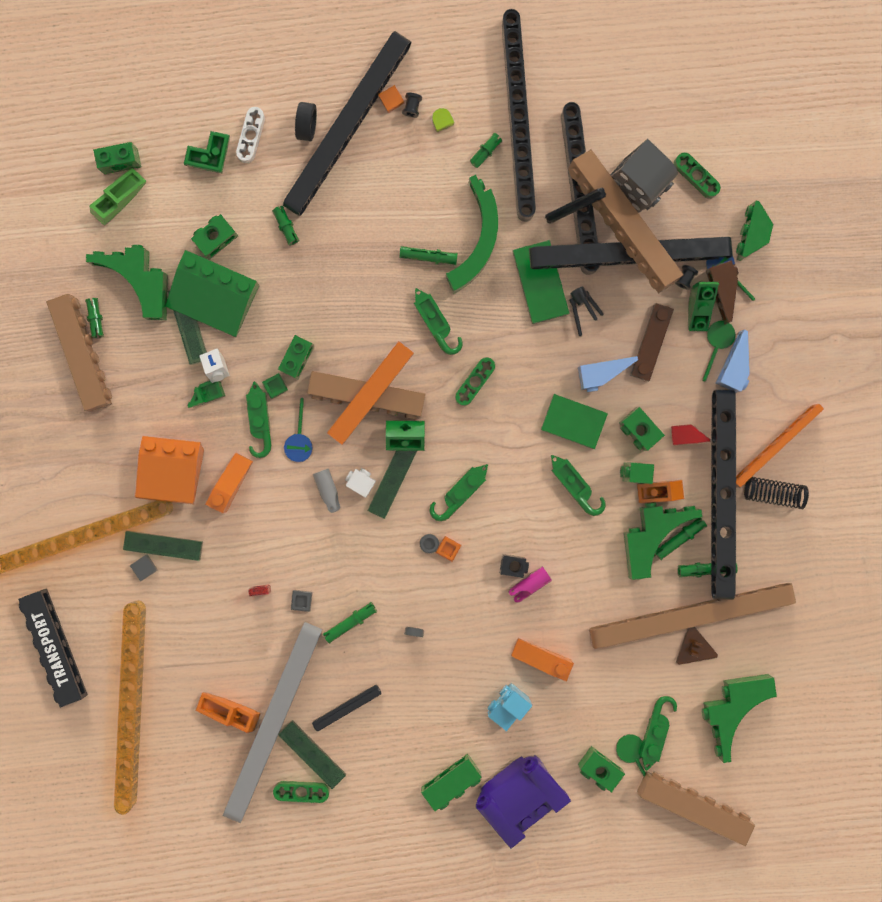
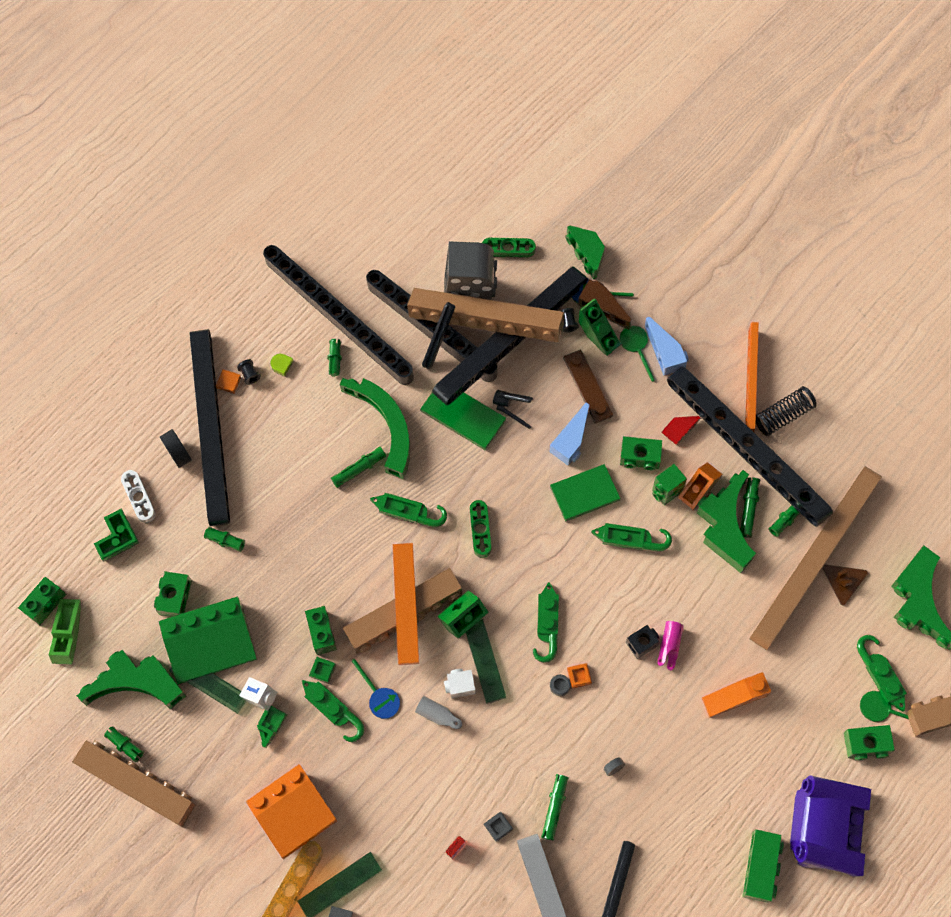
camera: 40 degrees left, 20 degrees down
(229, 483) = (352, 781): orange slope -> none
(510, 706) = (747, 756): medium azure brick -> none

